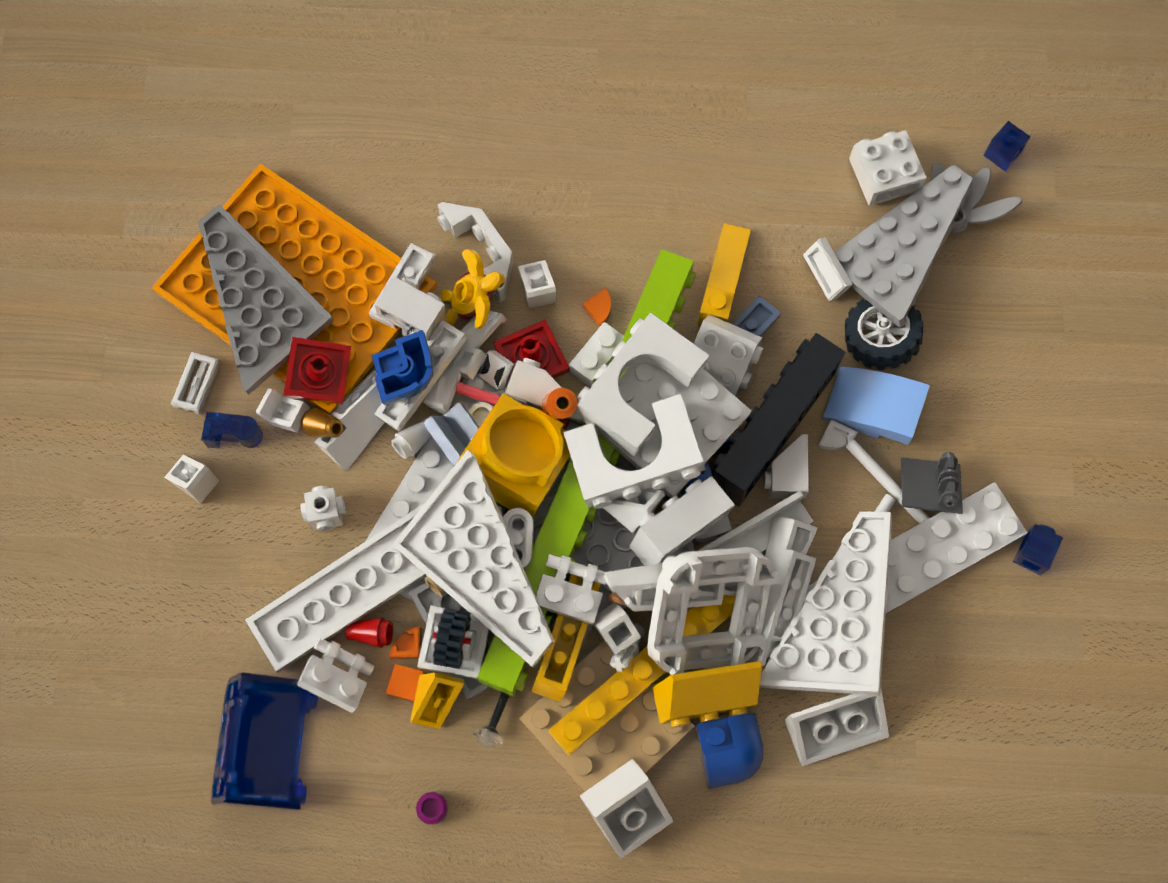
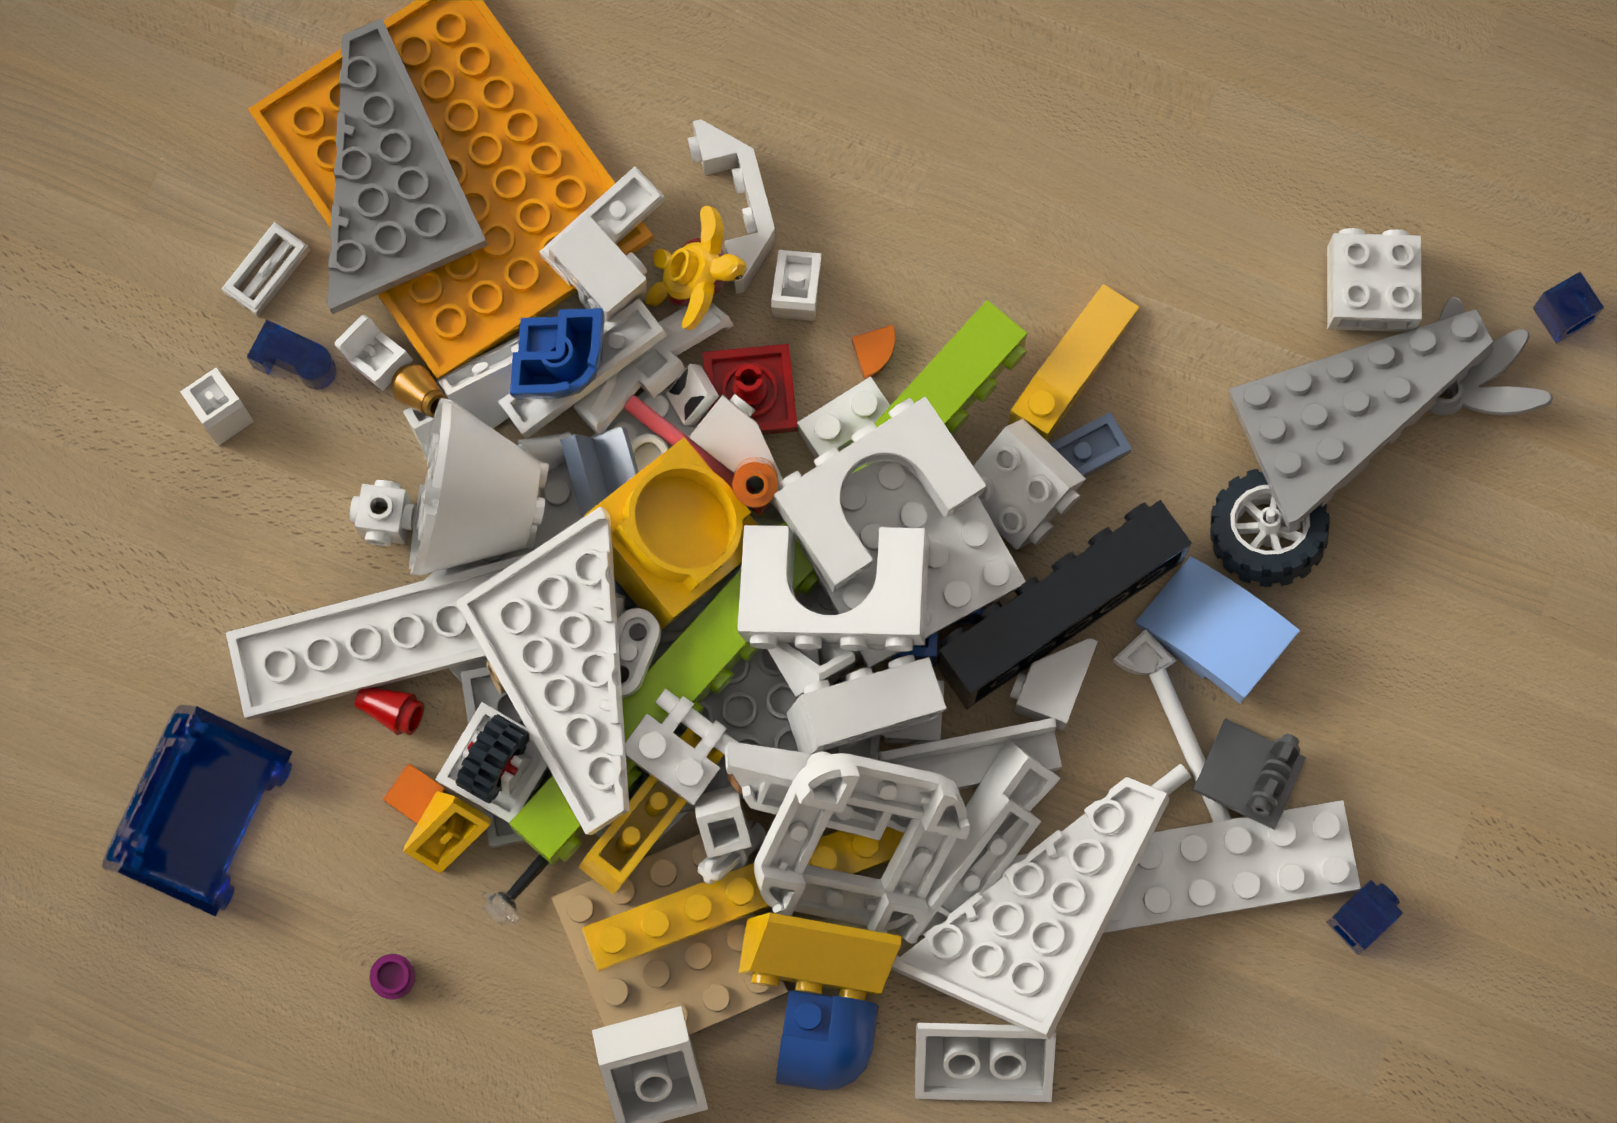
camera: 20 degrees right, 5 degrees up
(317, 371) = (438, 313): red plate -> none
(331, 682) = (314, 760): white plate -> none
(380, 474) = (476, 494): none -> white cone
(407, 645) = (435, 743): orange tile -> none
(827, 269) = (1225, 406): white tile -> none

